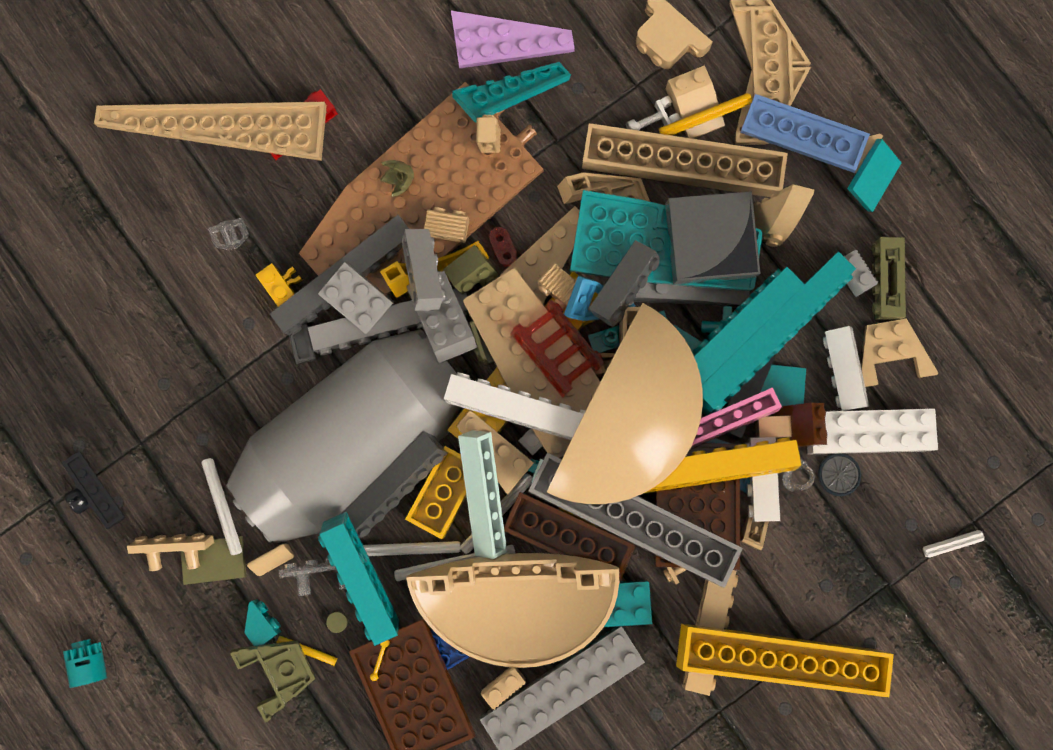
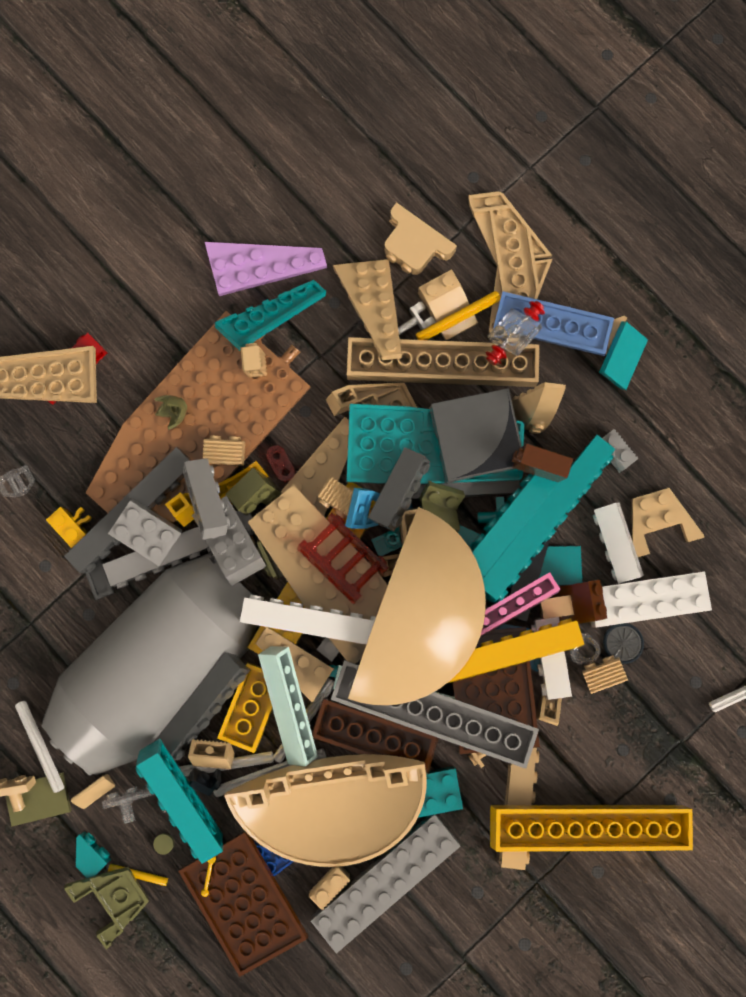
camera: 15 degrees left, 0 degrees up
(386, 564) = (203, 782): none -> black bracket
(397, 535) = (211, 754): none -> tan brick
(619, 89) = (373, 299): none -> tan wing
(668, 302) = (442, 502): none -> olive bracket
(763, 136) = (514, 332): none -> clear plate
(778, 271) = (542, 463): none -> reddish brown brick
(816, 504) = (605, 674): none -> tan brick
(885, 251) = (655, 478): olive brick -> none

